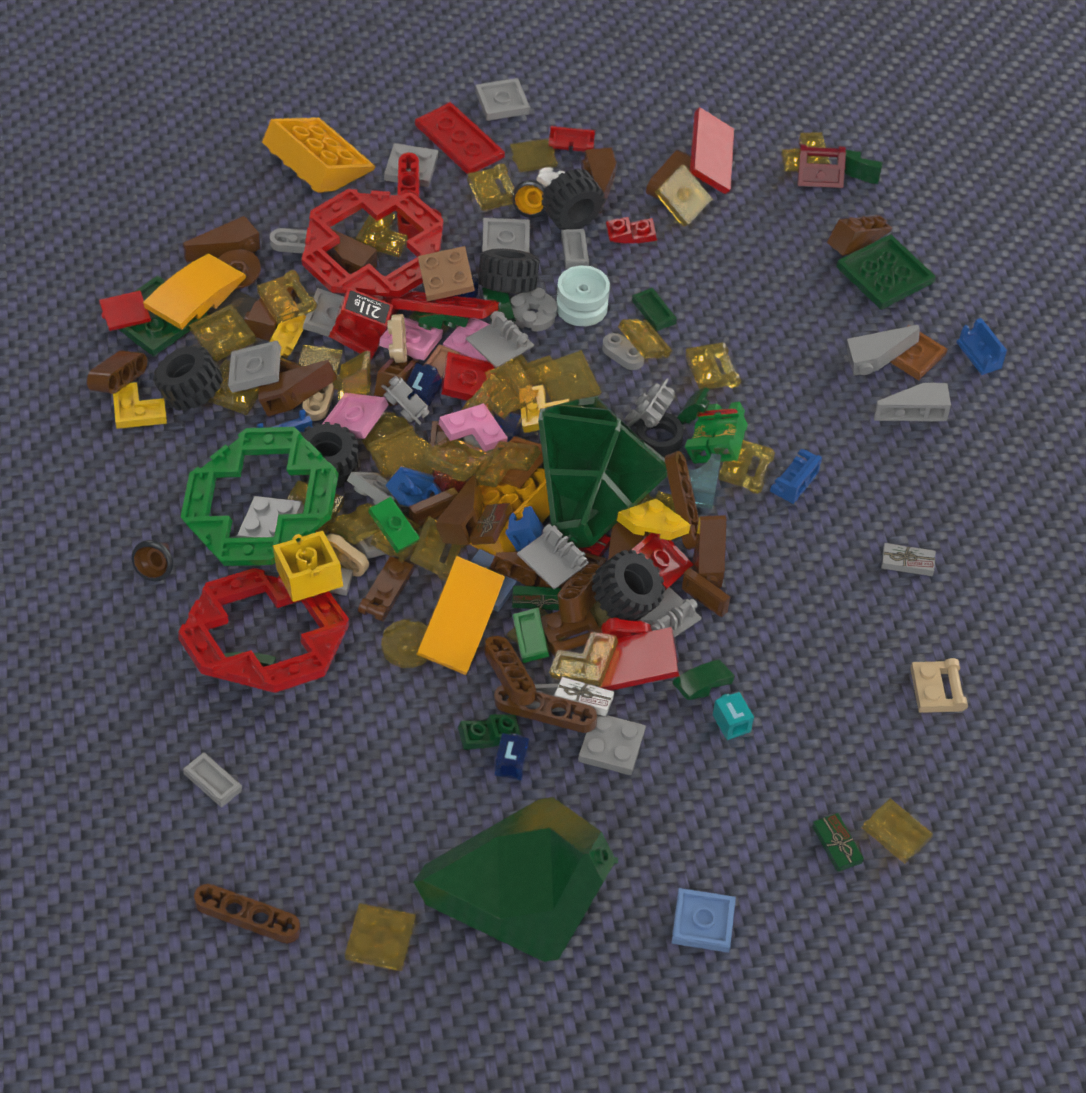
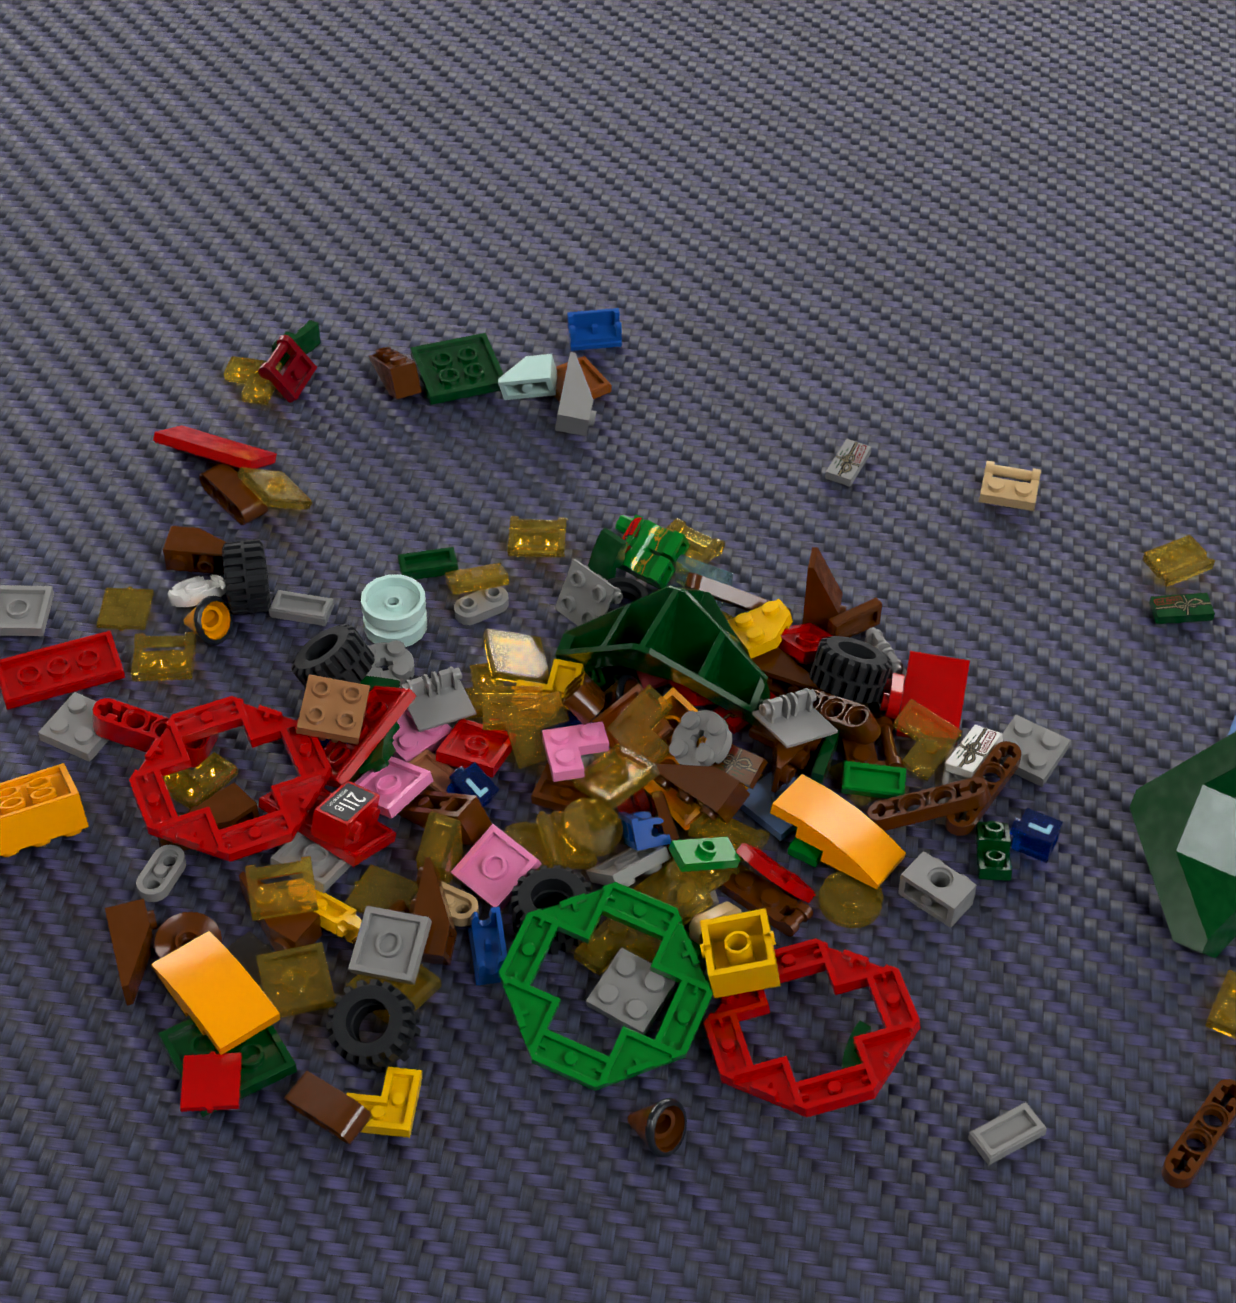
camera: 70 degrees left, 5 degrees down
(397, 329) = (409, 784): tan plate -> none
(402, 581) = (775, 872): none -> red tile
(412, 407) = (501, 807): light grey hinge -> none
(431, 681) = (937, 889): none -> light grey brick
(498, 496) = (690, 729): none -> light grey plate
(506, 234) = (259, 662): light grey plate -> none
(516, 416) = (584, 698): none -> reddish brown beam
(525, 530) = (751, 735): blue hinge -> none
(578, 138) = (121, 569): red hinge -> none
(636, 232) = (299, 550): red slope -> none
(699, 680) = (966, 645): dark green slope -> none
(733, 715) = (1019, 641): teal brick -> none
(797, 476) = (717, 510): blue hinge -> none
(890, 313) = (530, 378): none -> light aqua slope
(917, 403) = (654, 389): light grey slope -> none

